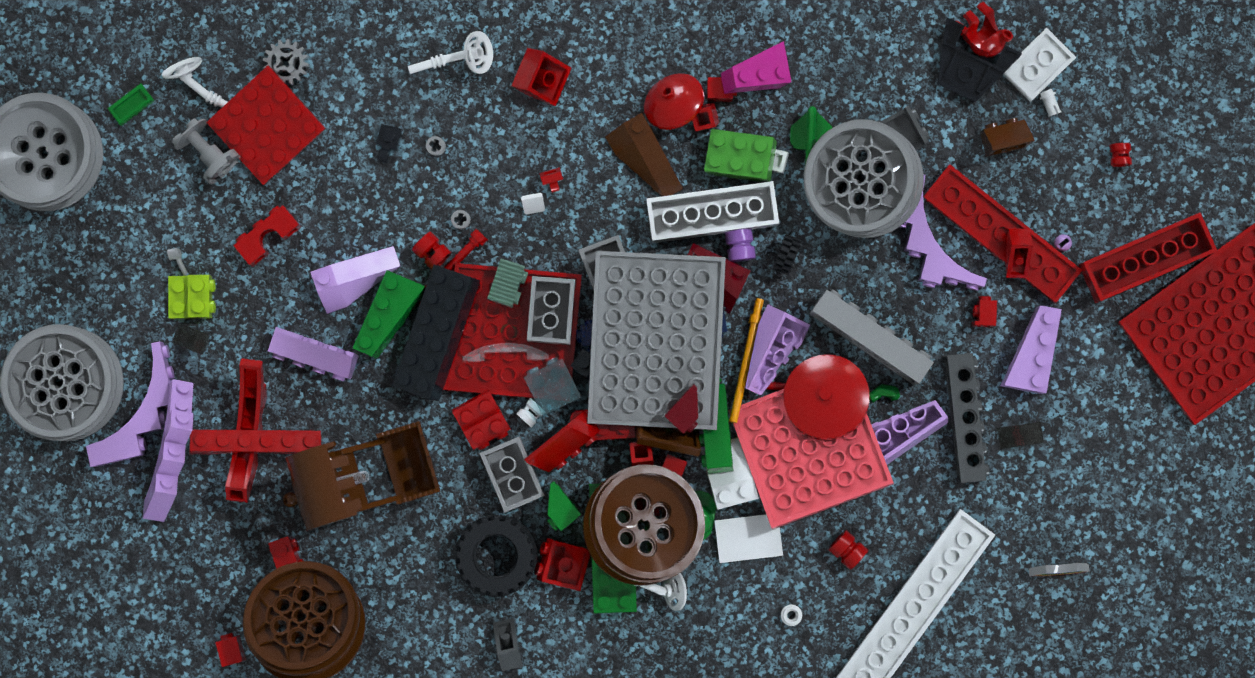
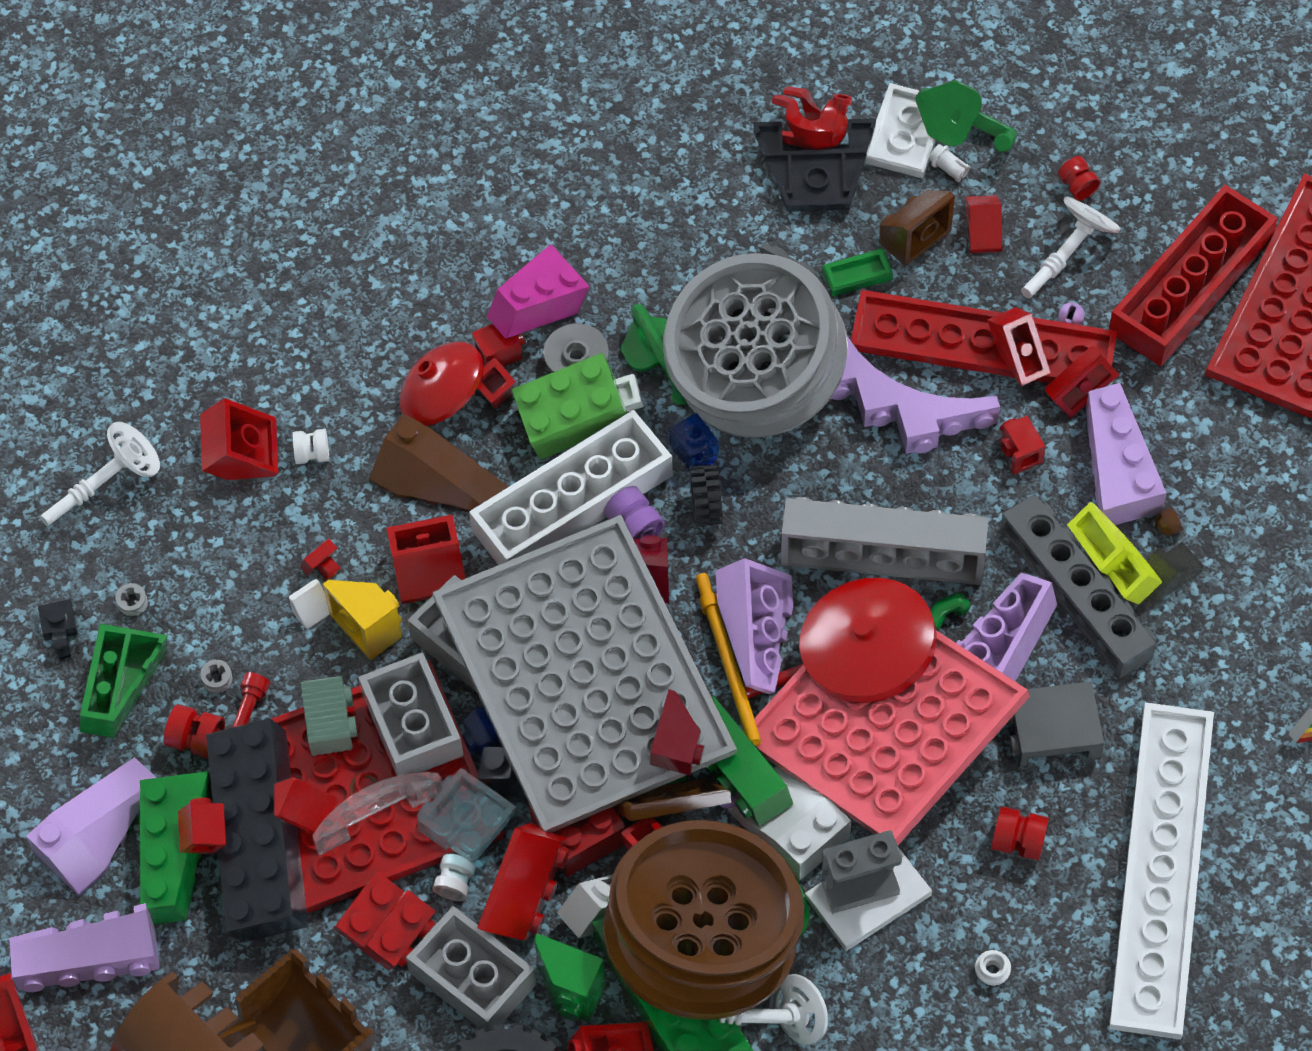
camera: 25 degrees left, 25 degrees down
(404, 194) = (117, 676): none -> green wedge
(405, 321) = (201, 826): none -> red brick
(465, 336) = (302, 804): none -> red slope
(558, 231) = (364, 614): none -> yellow slope
(576, 99) = (303, 446): none -> white wheel
(599, 469) = (586, 905): none -> white slope
(610, 211) = (424, 556): none -> red slope
(747, 534) = (860, 871): none -> dark grey panel
(763, 107) = (573, 341): none -> light grey dish
(799, 214) = (694, 442): none -> clear blue brick
(907, 497) = (1056, 723): none -> dark grey panel
(955, 147) = (857, 272): none -> green tile
(995, 412) = (1114, 554): none -> neon yellow slope
(1039, 405) = (1168, 522): none -> reddish brown hinge
(1041, 292) = (1085, 374): none -> red slope
(1048, 153) = (984, 223): none -> red slope
(1069, 74) = (953, 110): none -> green piece
(1111, 186) = (1087, 221): none -> white dish

